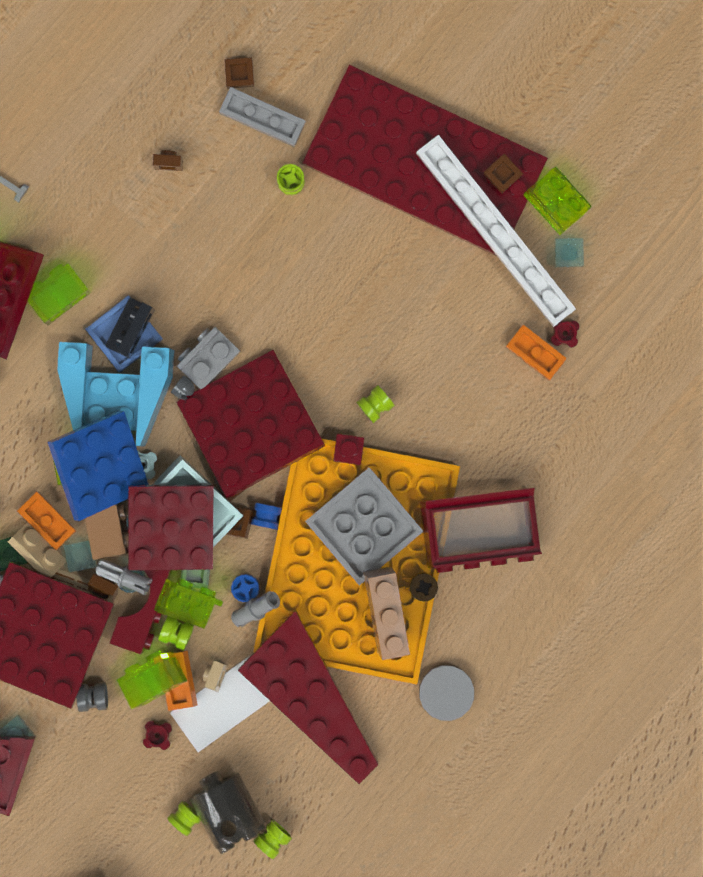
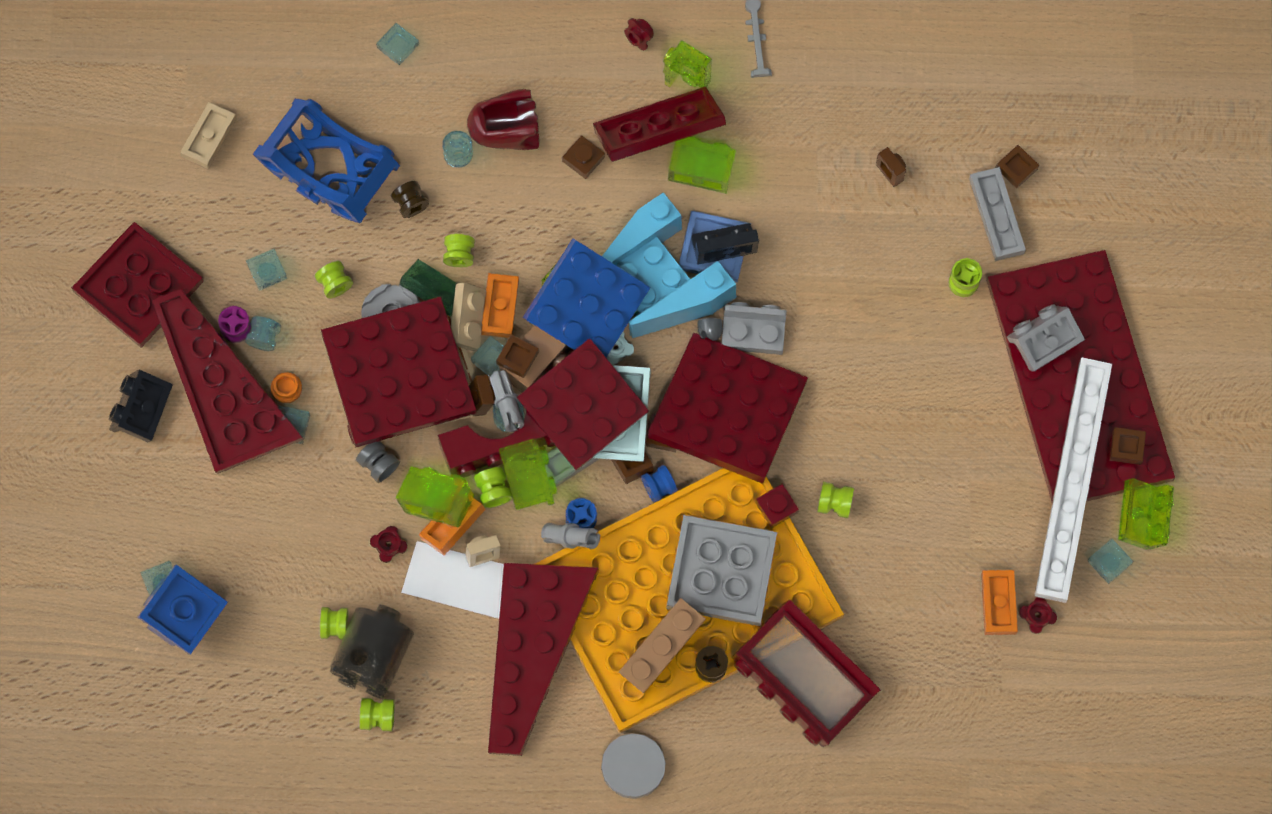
camera: 45 degrees right, 15 degrees down
(98, 544) = (517, 356): none -> reddish brown plate
(380, 162) = (1046, 336): none -> light grey bracket

